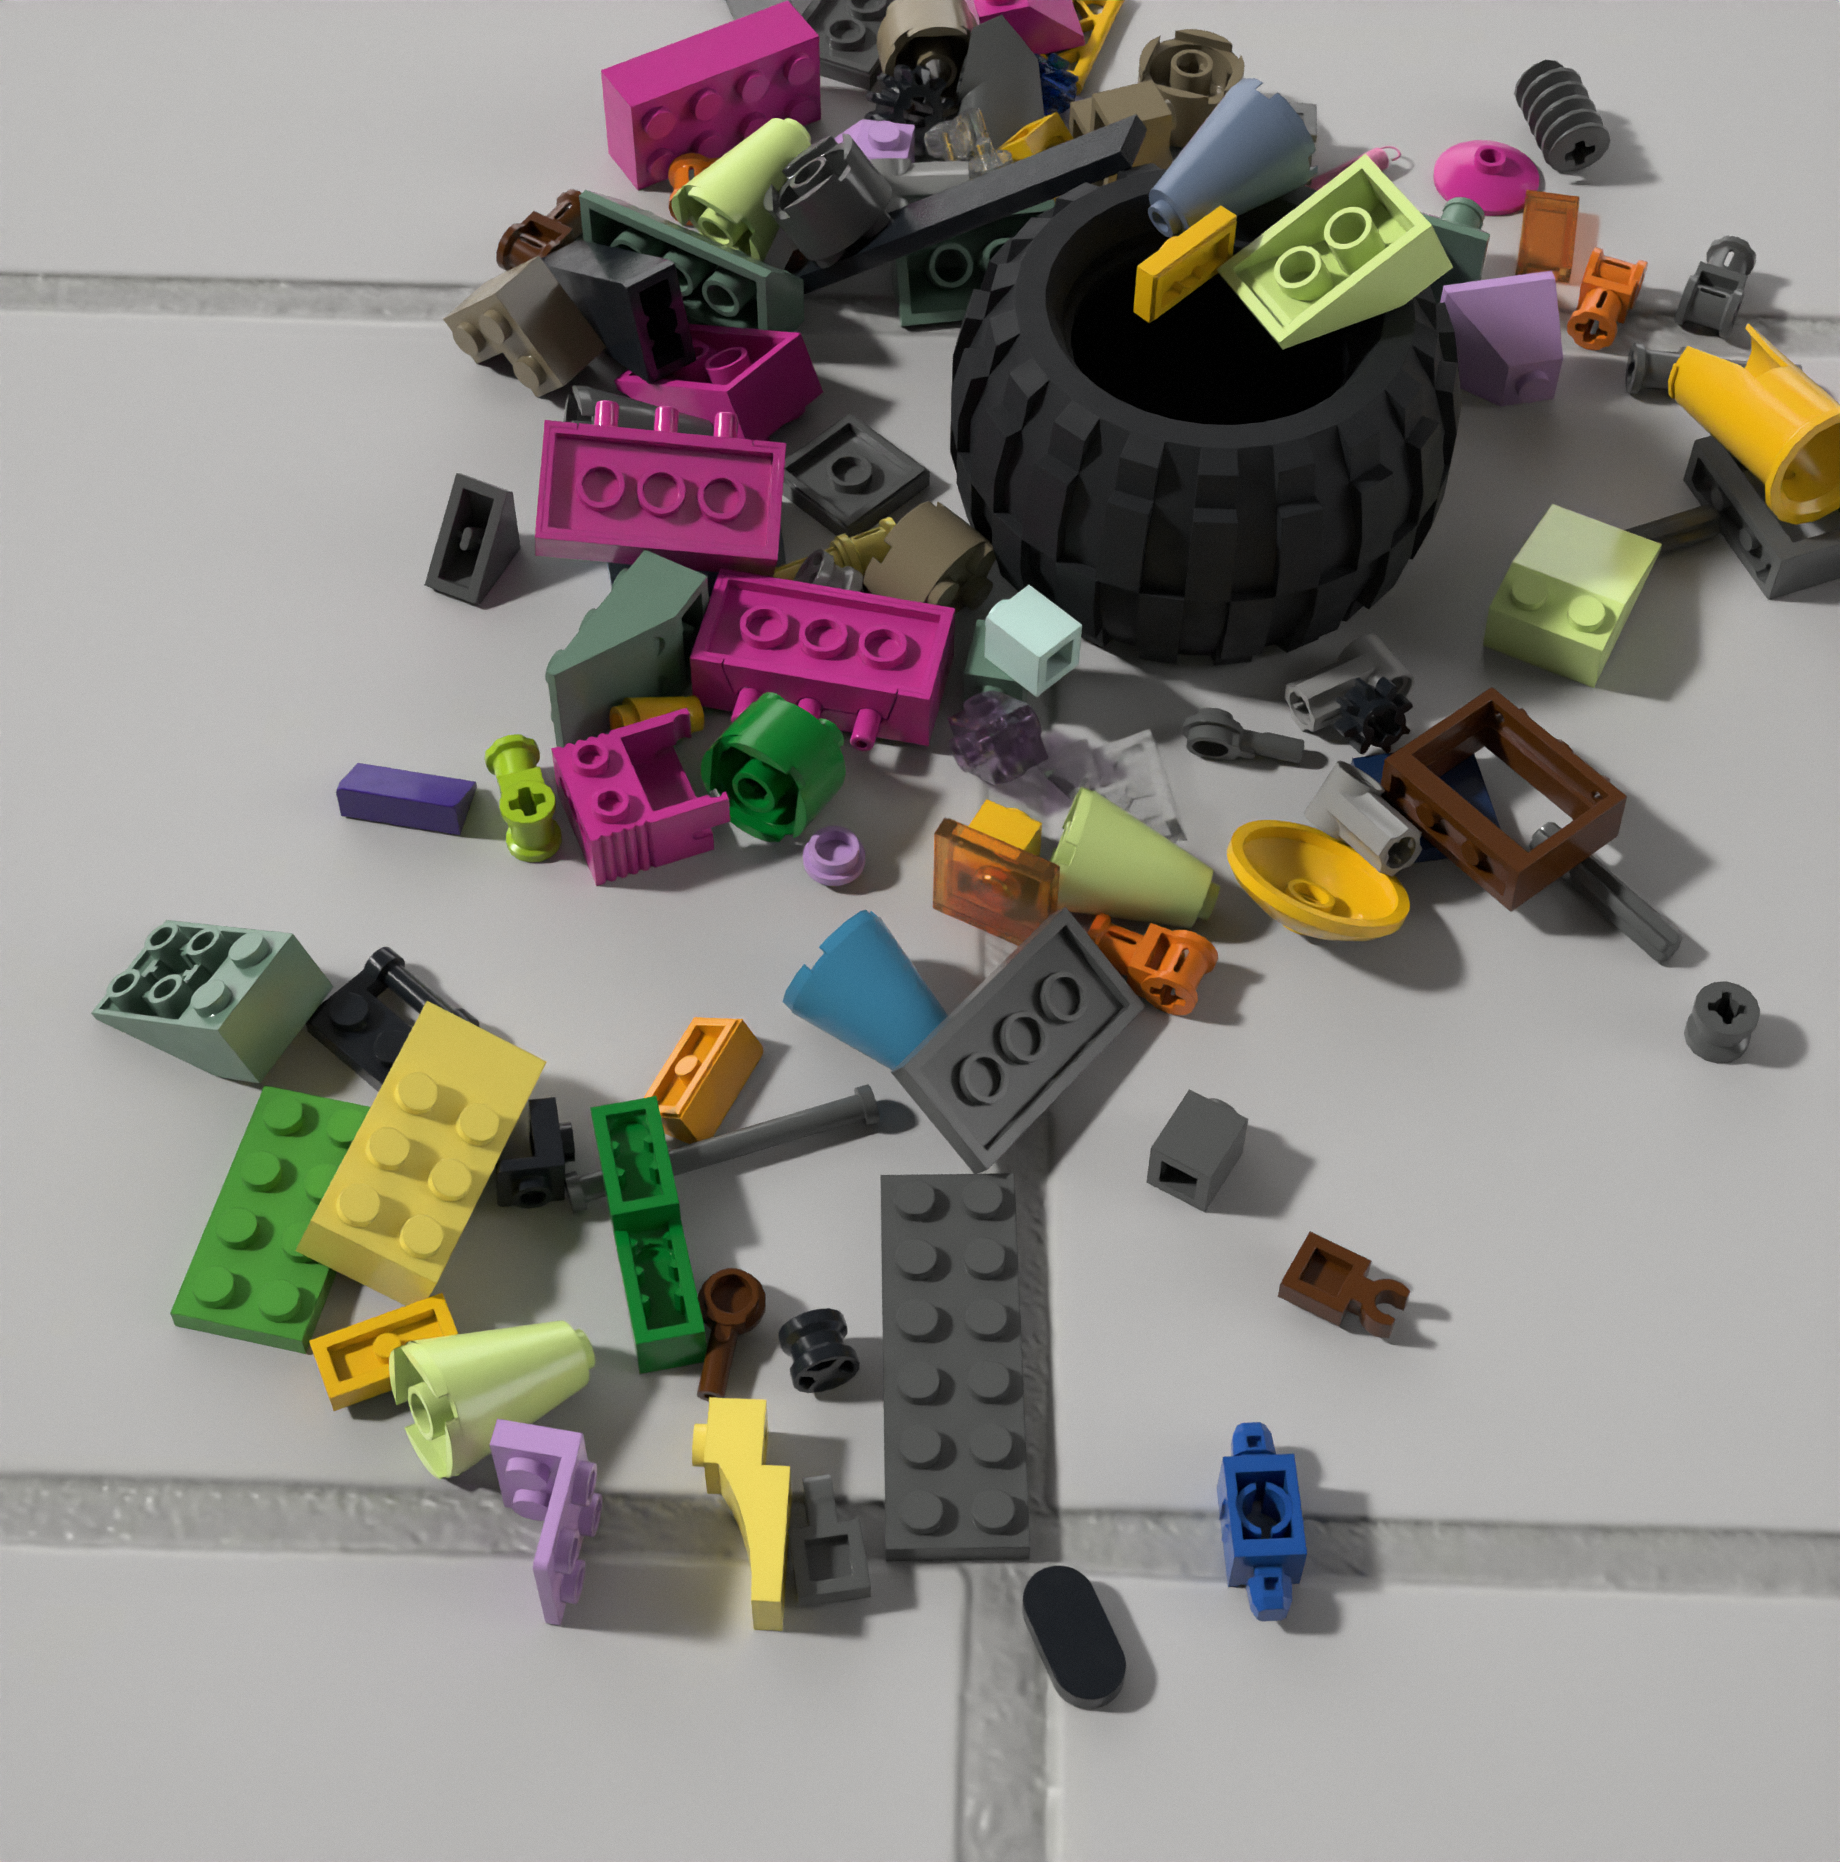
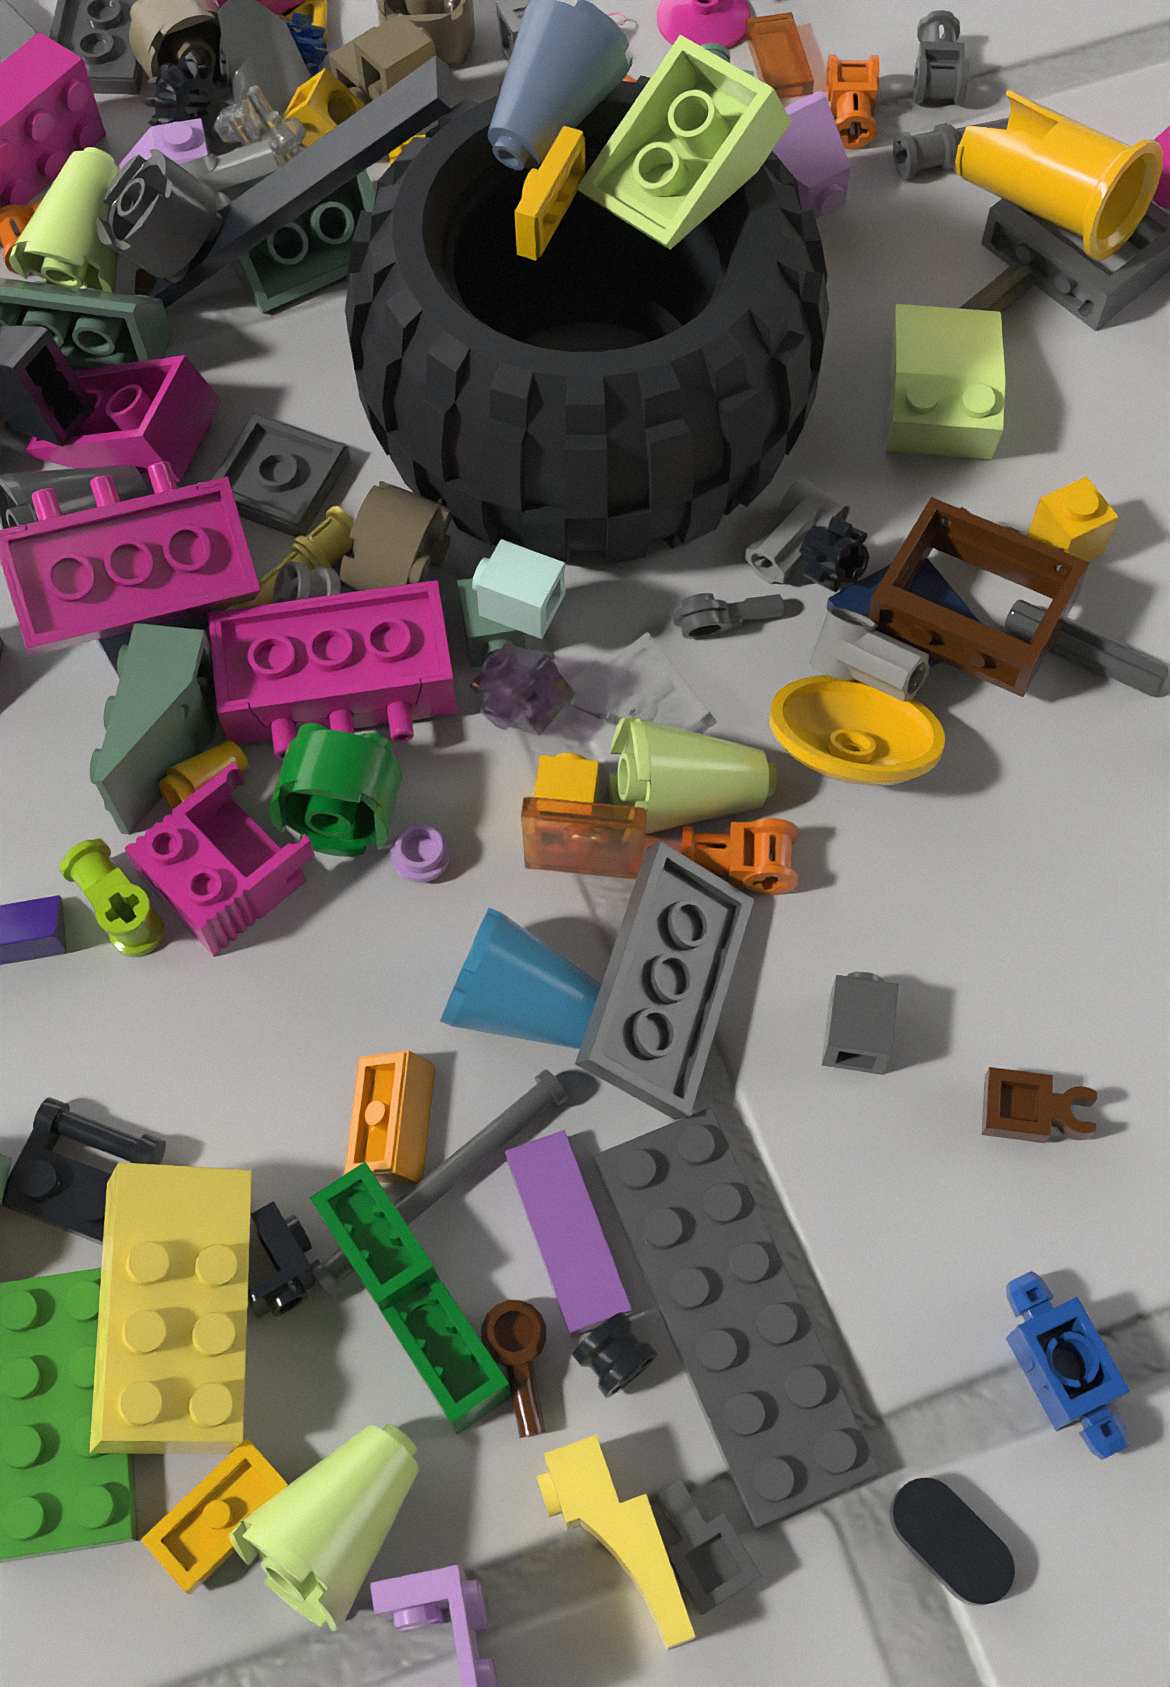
camera: 20 degrees left, 10 degrees up
(824, 1229) = (567, 1232): none -> medium lavender tile
(1644, 766) = (1074, 520): none -> yellow brick

